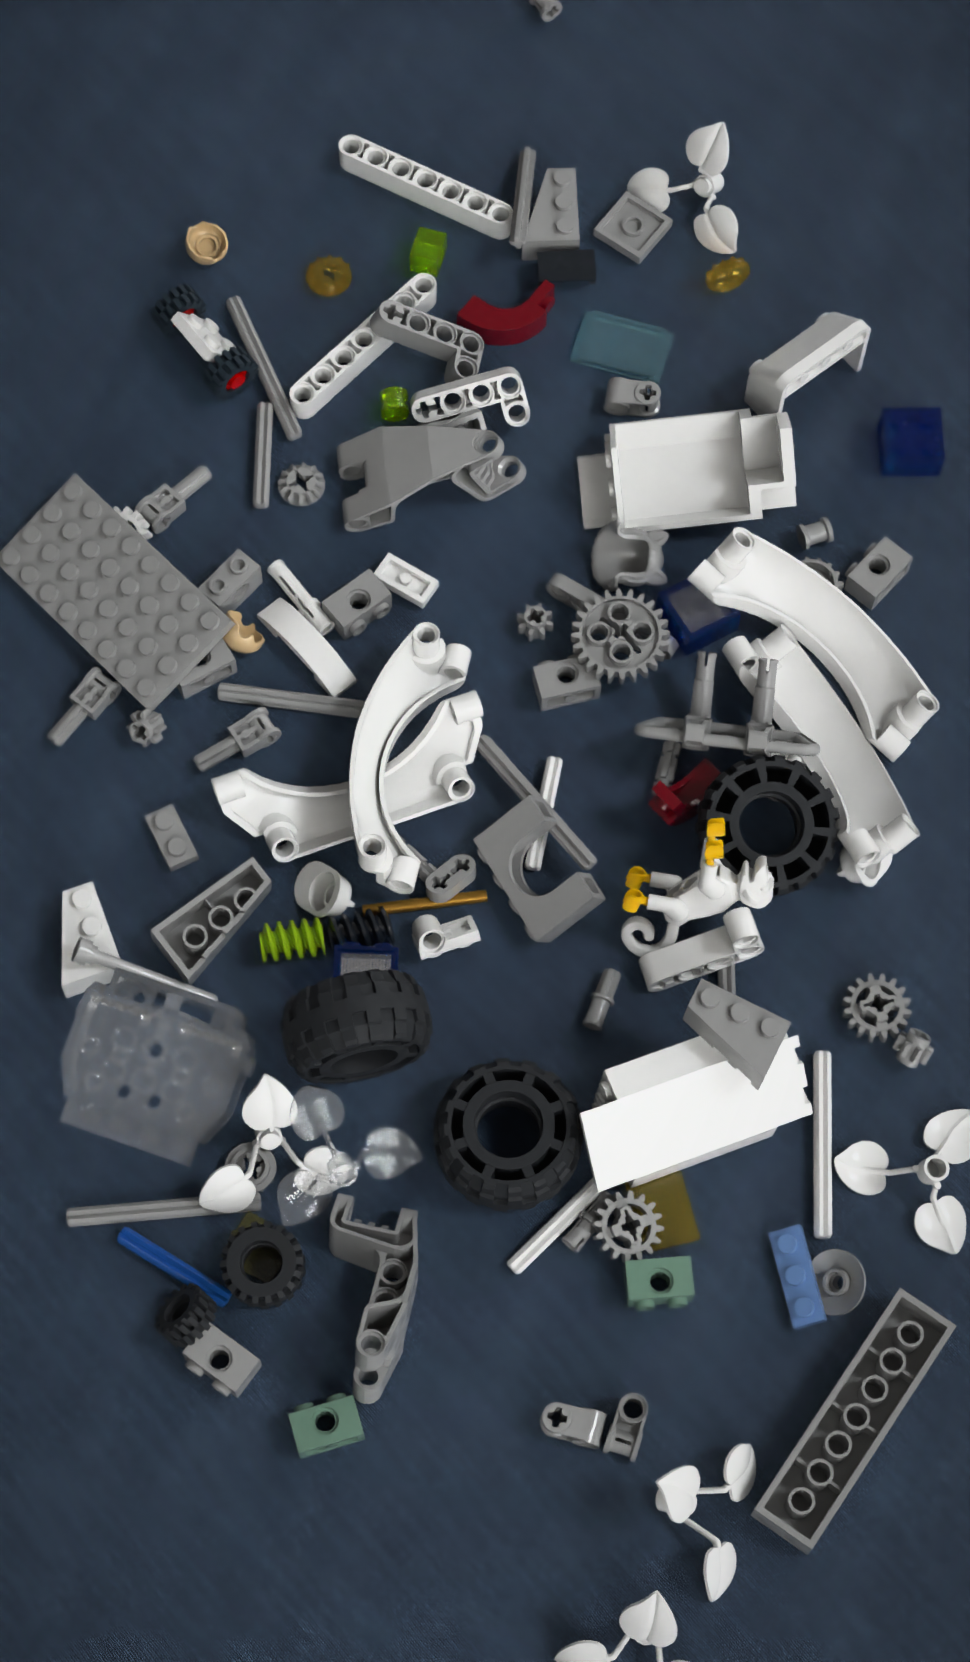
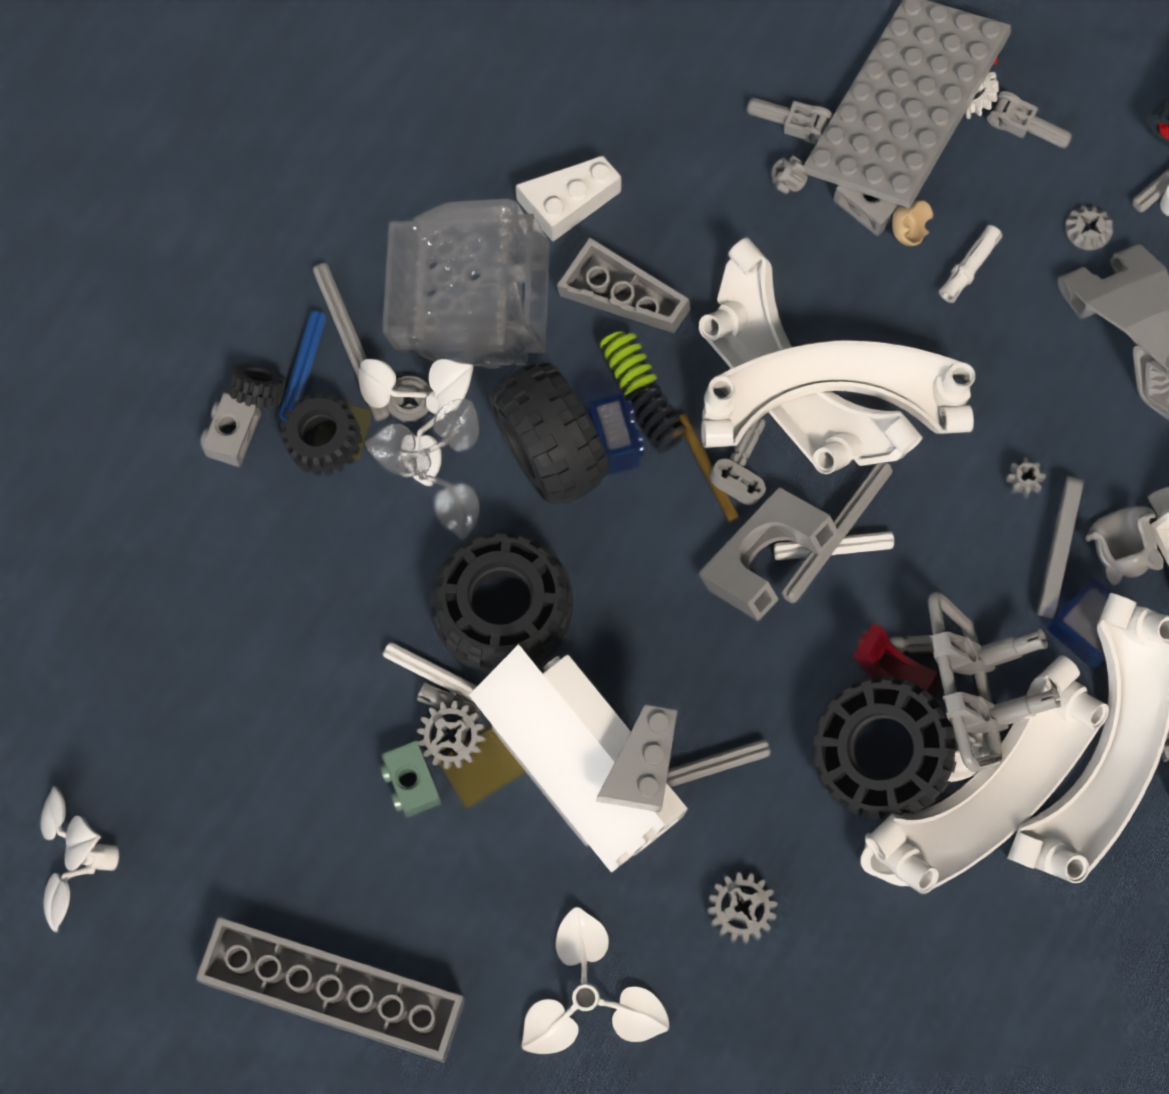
camera: 75 degrees right, 5 degrees up
(86, 952) = (547, 191): light grey piece -> none
(171, 837) = (694, 233): light grey plate -> none
(233, 581) = (957, 197): light grey brick -> none
(244, 736) = (811, 262): light grey connector -> none
(262, 461) = (1105, 184): light grey axle -> none
(290, 700) = (863, 282): light grey axle -> none
(309, 646) = (922, 286): white slope -> none
(314, 1441) = (203, 550): sand green brick -> none
(322, 890) = (684, 375): white piece -> none
(364, 590) = (974, 300): light grey brick -> none
(390, 1305) = (283, 553): light grey piece -> none
(406, 580) = (1024, 349): white plate -> none
(445, 937) = (674, 487): white plate -> none
(556, 694) = (975, 542): light grey brick -> none
(580, 1424) = (259, 747): light grey piece -> none
(601, 653) = (1059, 566): light grey gear -> none
(602, 999) = (667, 652): light grey axle -> none
(627, 1429) = (264, 788): light grey piece -> none
(678, 1498) = (210, 844): white plant -> none
(697, 896) = (786, 700): white animal -> none
(703, 953) = (756, 749): white beam -> none
(797, 1277) = (455, 905): medium blue plate -> none
(822, 1144) = (591, 894): white axle -> none
(831, 1266) = (458, 939): light grey dish -> none
(913, 1047) = (712, 953): light grey gear -> none

